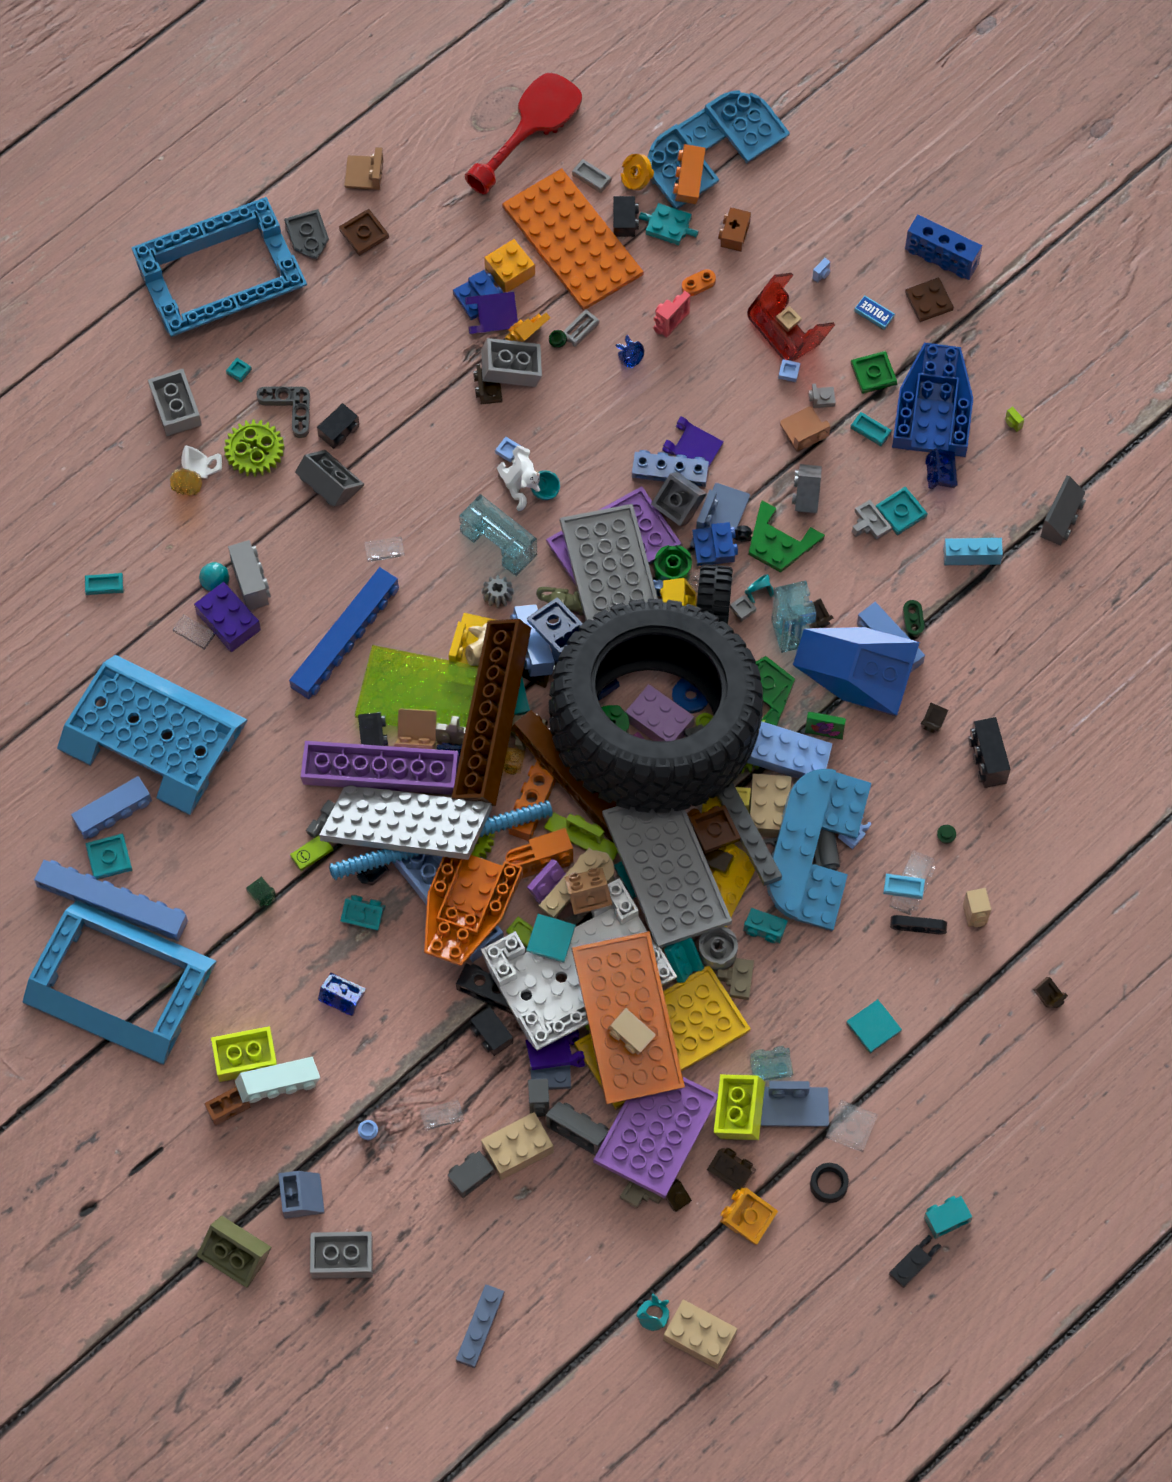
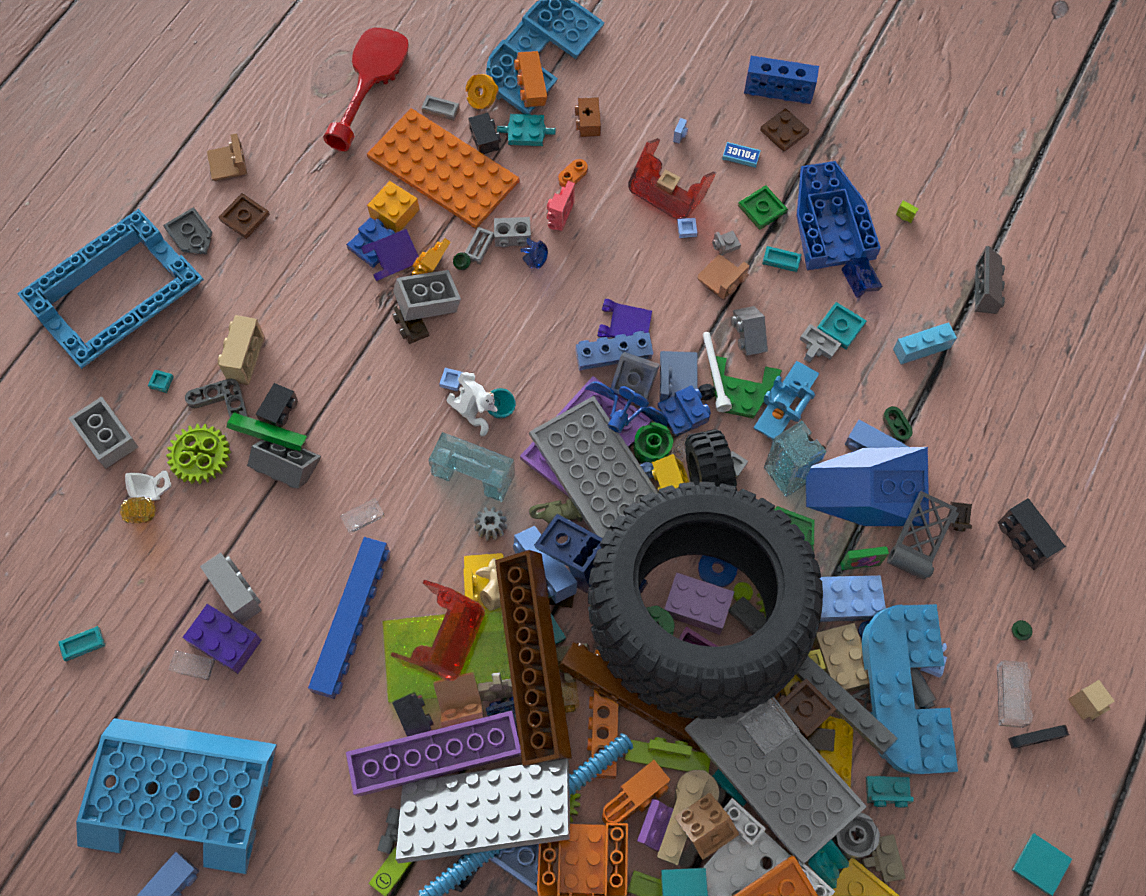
camera: 20 degrees left, 0 degrees up
(213, 575) = (195, 598): teal piece -> none
(321, 446) = (266, 432): none -> green tile
(322, 362) = (241, 349): none -> tan brick
(427, 675) = (453, 638): none -> clear red windscreen
(618, 320) = (512, 227): none -> light grey brick
(648, 531) = (619, 418): none -> blue plant
(673, 830) = (768, 726): none -> clear plate
(753, 547) = (723, 402): none -> white piece
(762, 582) = (742, 436): teal piece -> none
(818, 557) = (781, 396): none -> dark azure piece
(869, 741) = (915, 561): none -> dark grey piece
(904, 886) = (1013, 703): medium azure tile -> none

